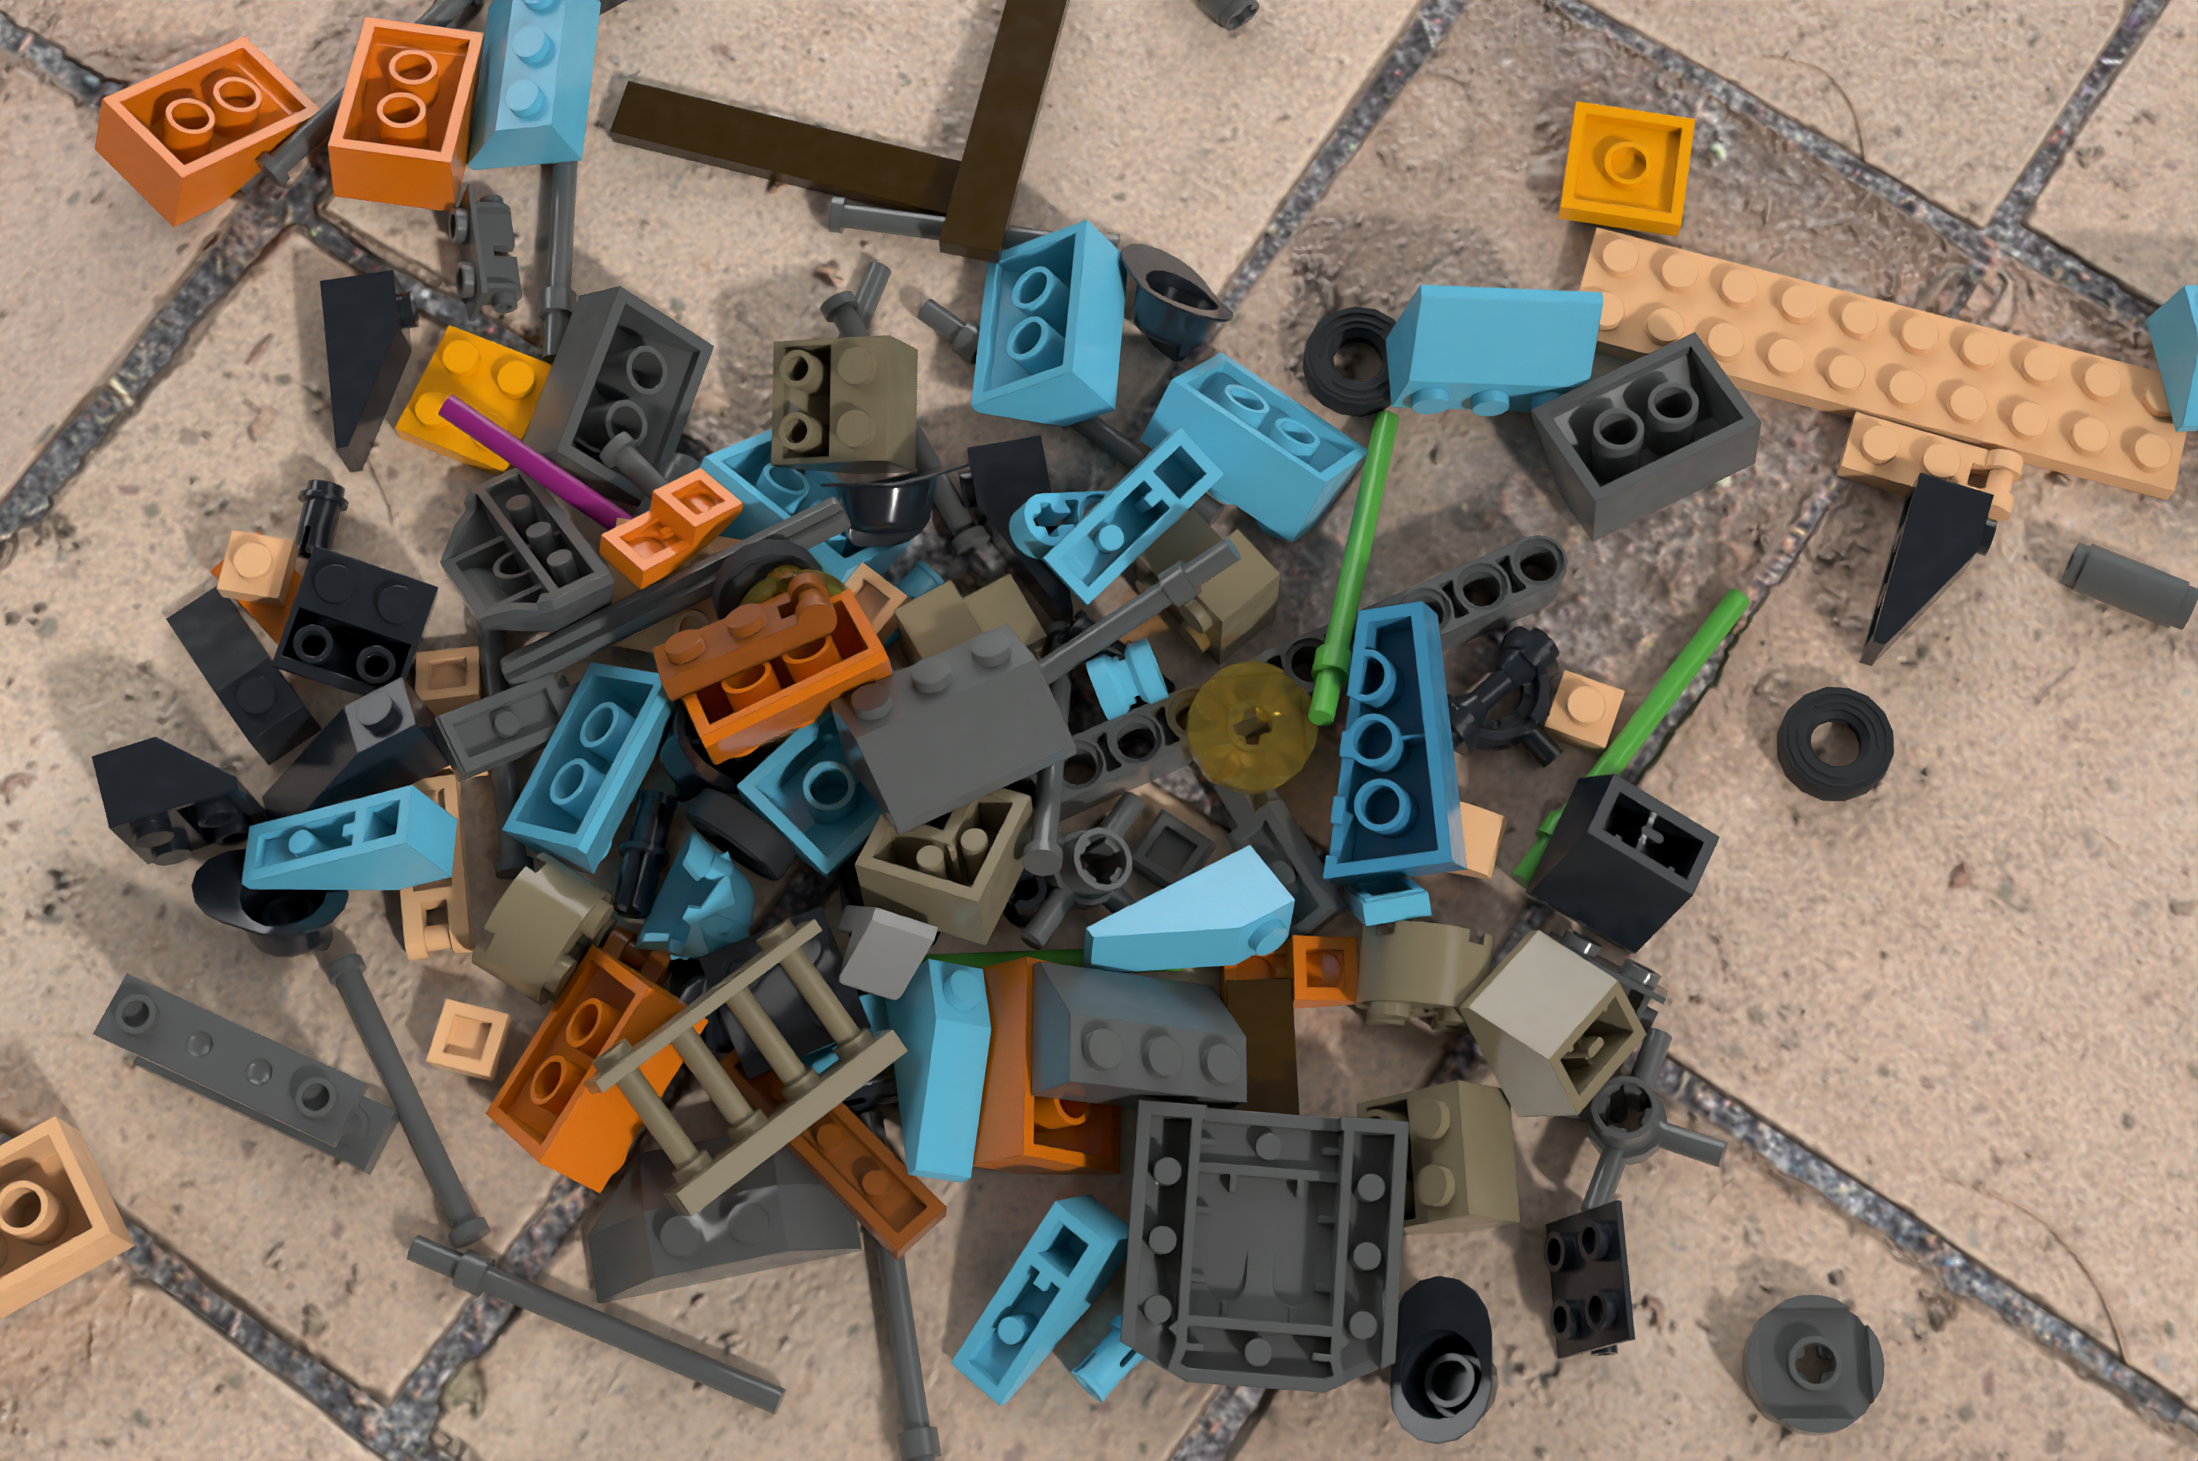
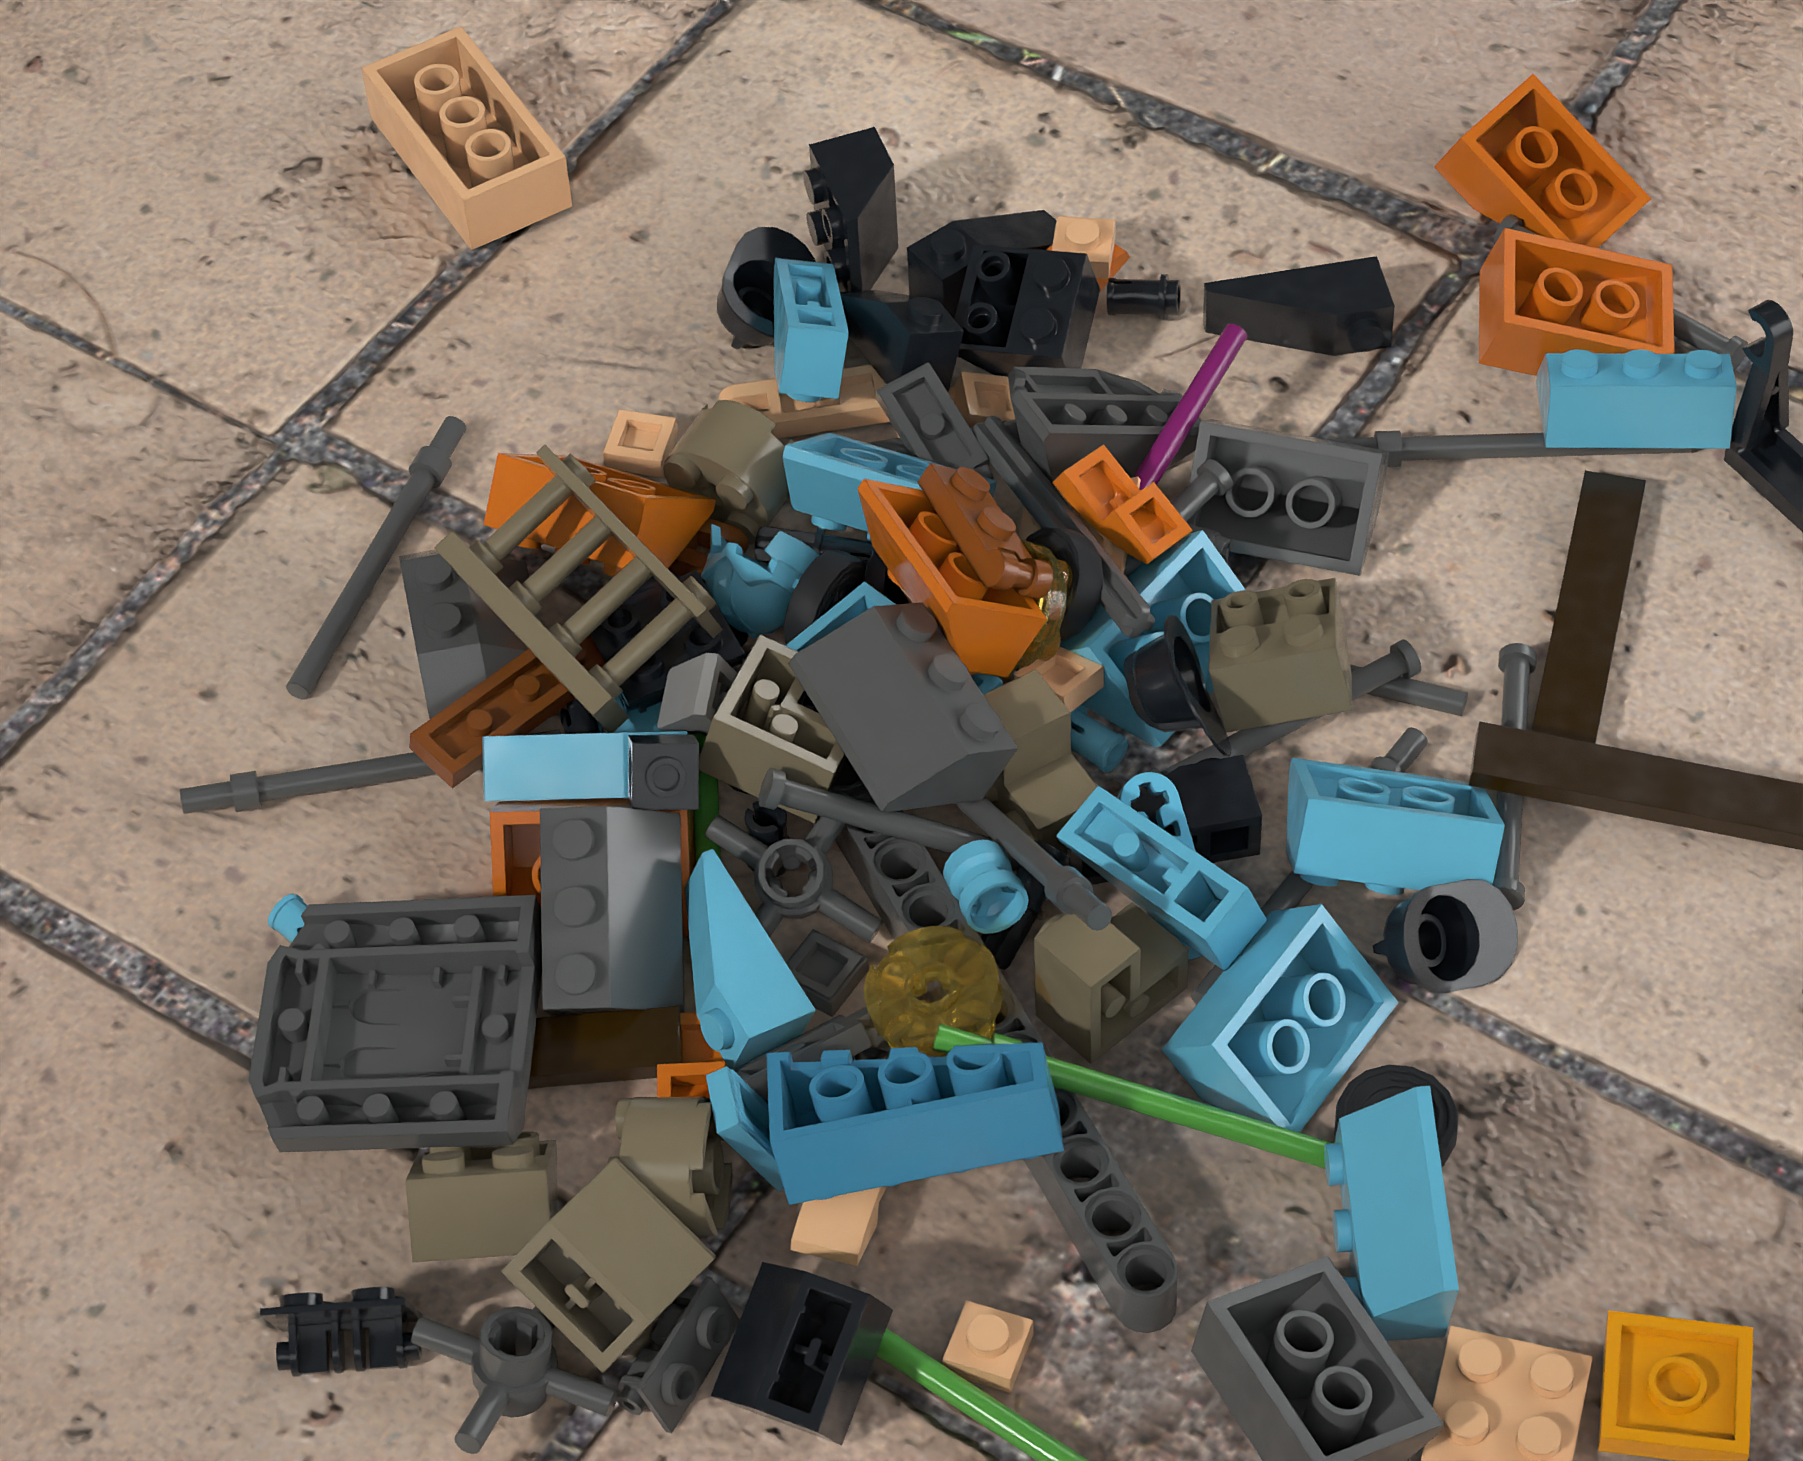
camera: 90 degrees right, 20 degrees down
(248, 1073) = (597, 279): dark grey fence -> none
(348, 976) = (703, 360): dark grey bar -> none
(480, 275) = (1412, 388): dark grey hinge -> none
(487, 378) = (1282, 392): light orange plate -> none
(998, 973) = (663, 772): none -> black brick
(1043, 1295) = (370, 862): medium azure slope -> none
(1442, 1361) = (268, 1199): black piece -> none
(1524, 663) = (1036, 1278): black piece -> none

